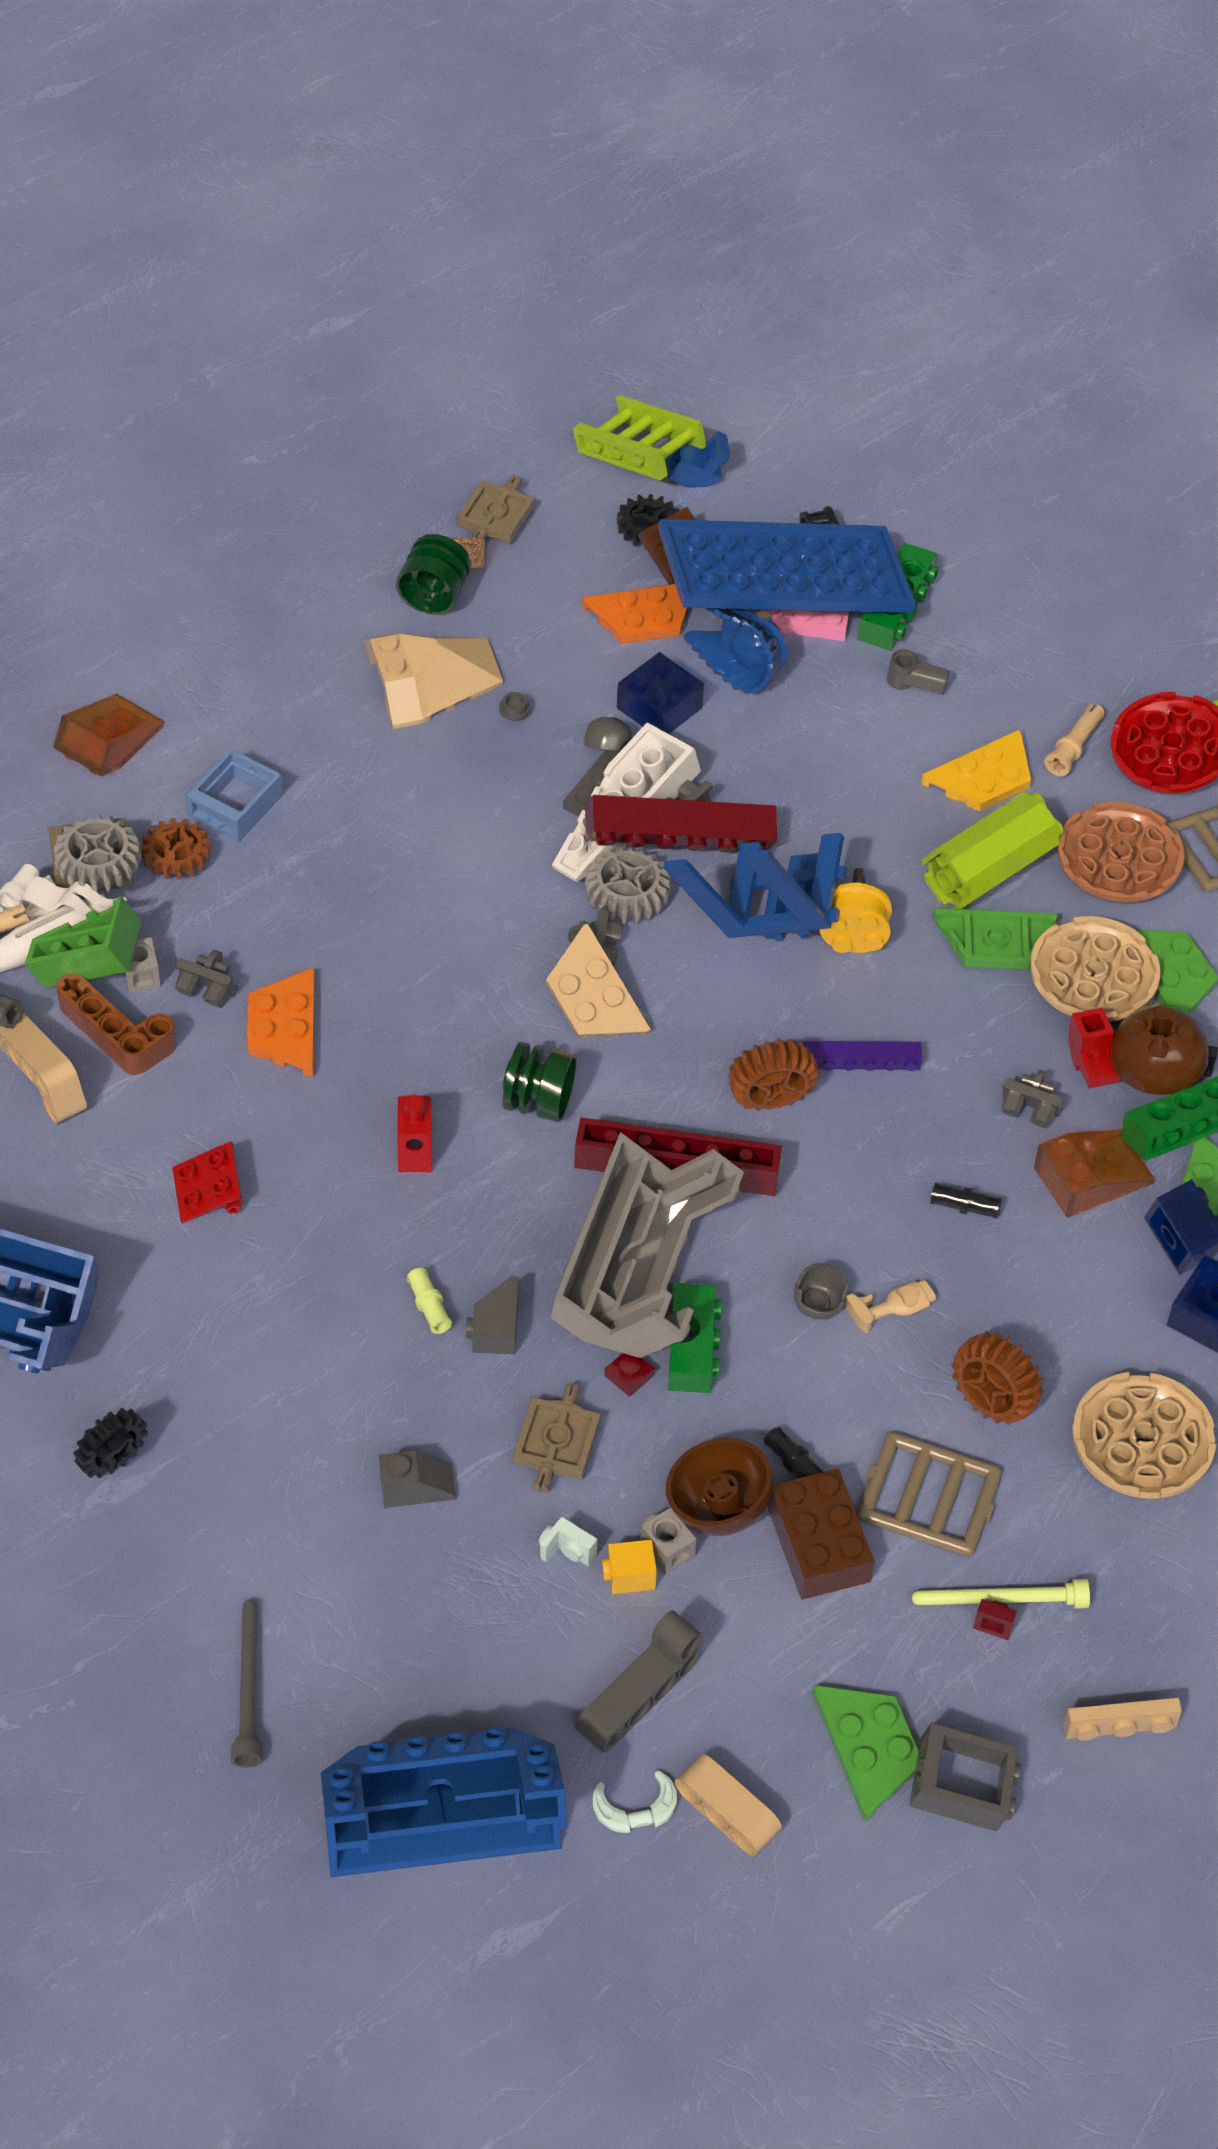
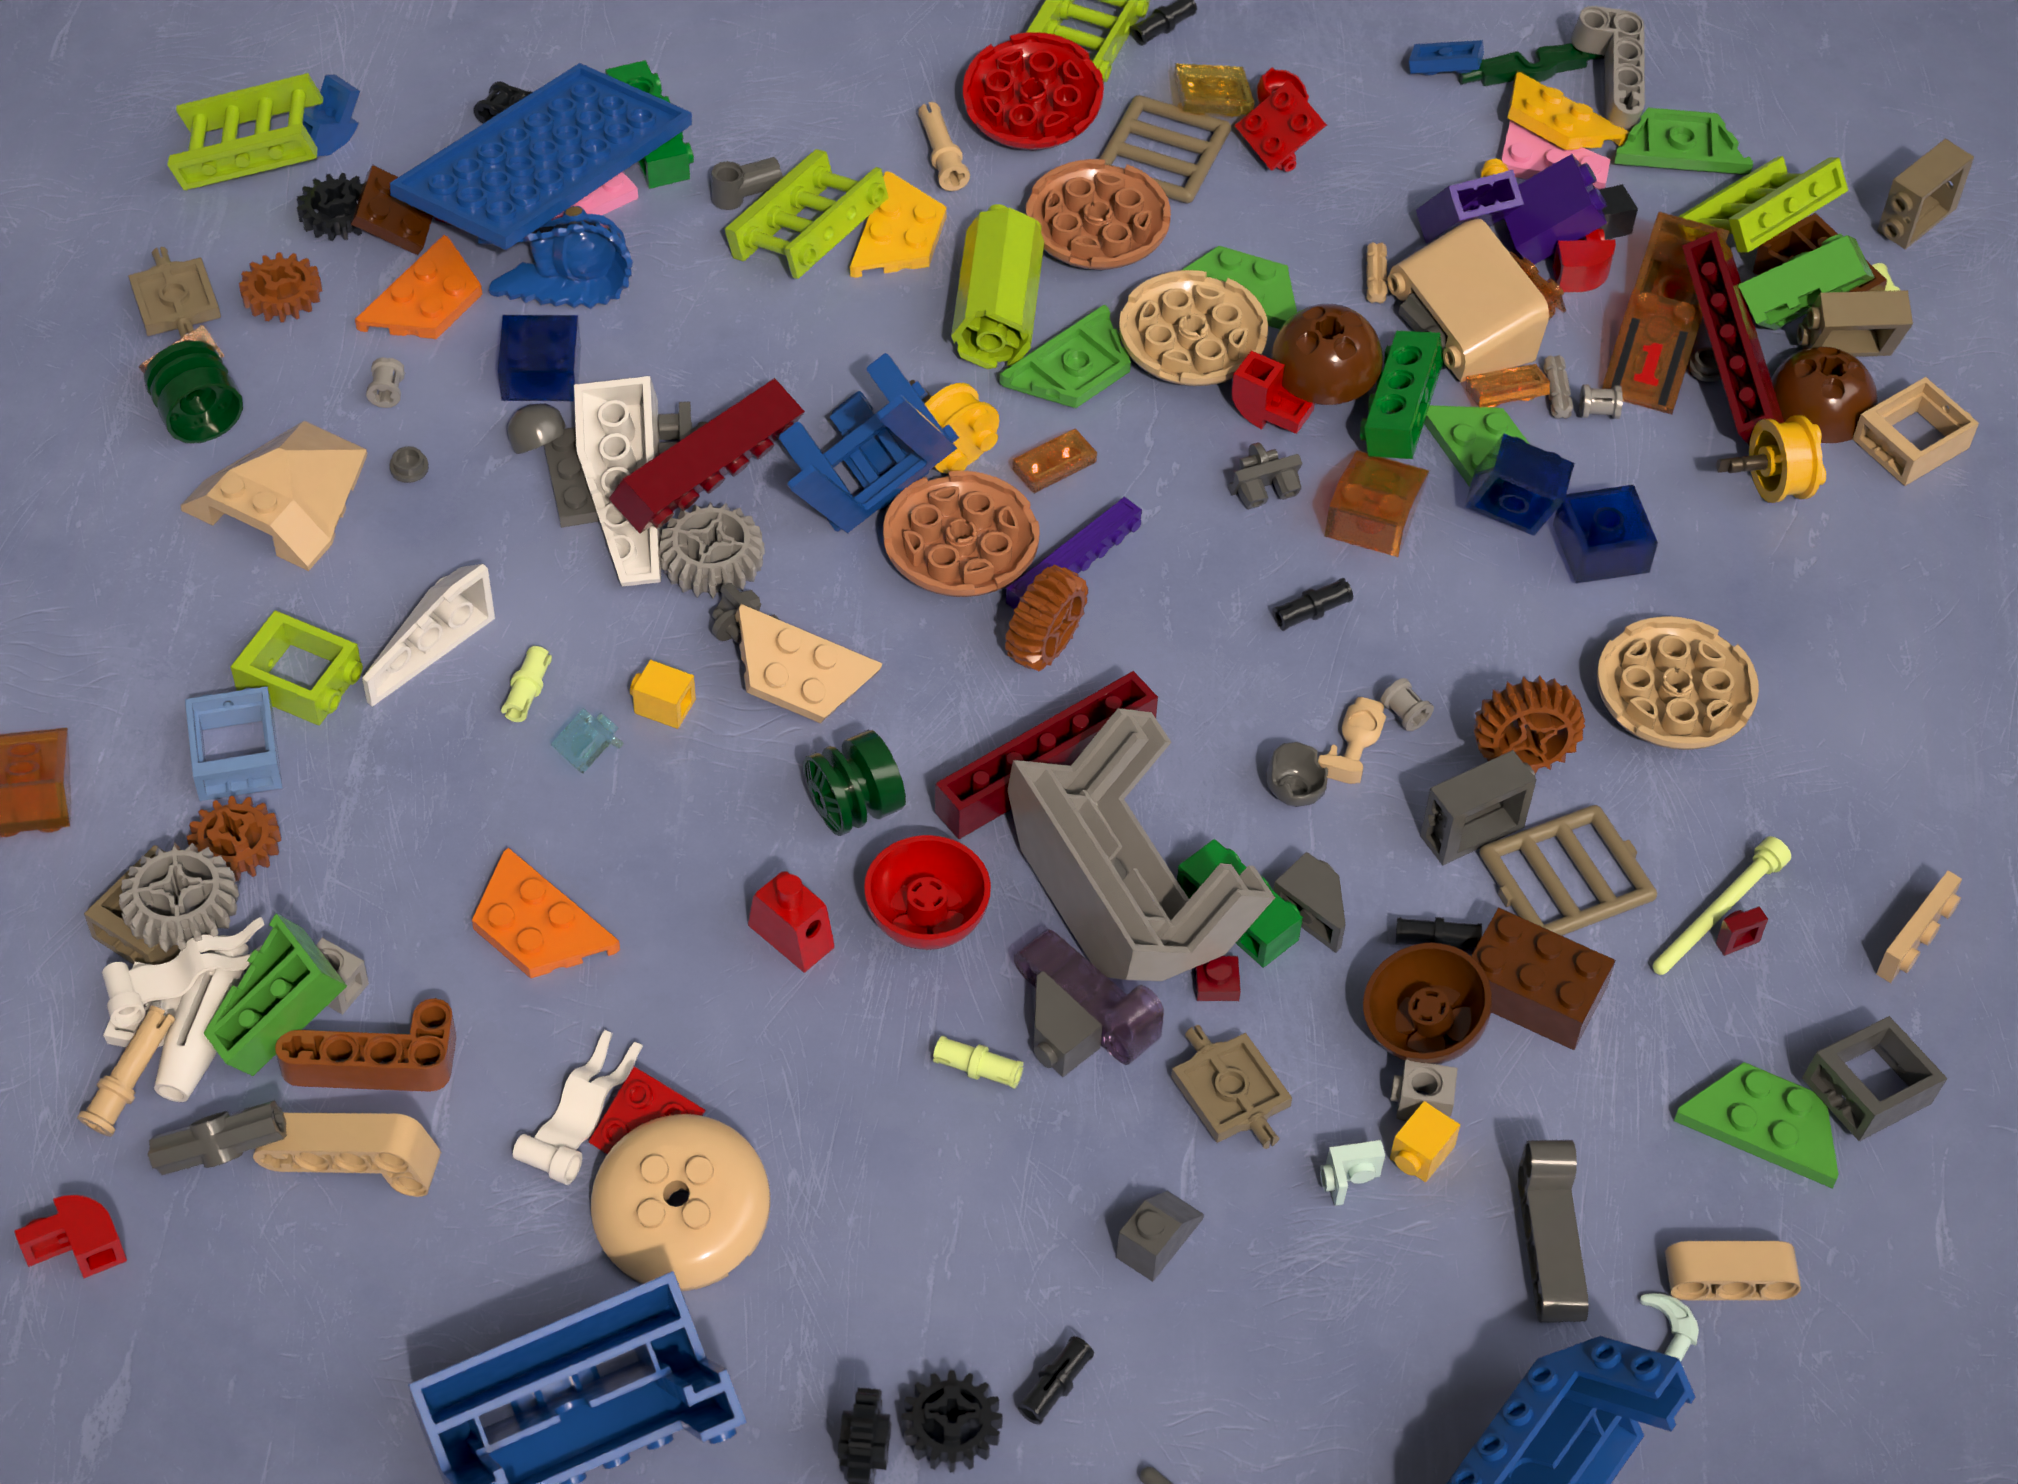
camera: 45 degrees left, 0 degrees up
(148, 1152) = (576, 1117): none -> white flag
(176, 1479) = (959, 1400): none -> black gear
(188, 1258) = (704, 1235): none -> tan brick
(209, 974) = (397, 943): dark grey hips -> none
(259, 1509) = (1055, 1380): none -> black pin
(311, 756) = (268, 646): none -> lime window
(417, 811) = (440, 622): none -> white wedge
(426, 940) = (586, 739): none -> clear light blue bracket
(432, 883) = (526, 684): none -> yellowish green pin
(500, 948) = (663, 694): none -> yellow brick
(503, 1176) = (927, 891): none -> red piece
(534, 1316) = (1128, 1020): none -> clear purple beam
(555, 647) = (385, 382): none -> light grey bush
(557, 547) = (283, 287): none -> dark orange gear
(741, 1372) = (1318, 897): none -> dark grey slope
(785, 986) = (961, 534): none -> nougat brick
(906, 988) = (1054, 460): none -> clear orange plate
(907, 1401) = (1478, 807): none -> dark grey window
(928, 704) = (791, 195): none -> lime fence
(949, 1308) = (1407, 704): none -> light grey bush

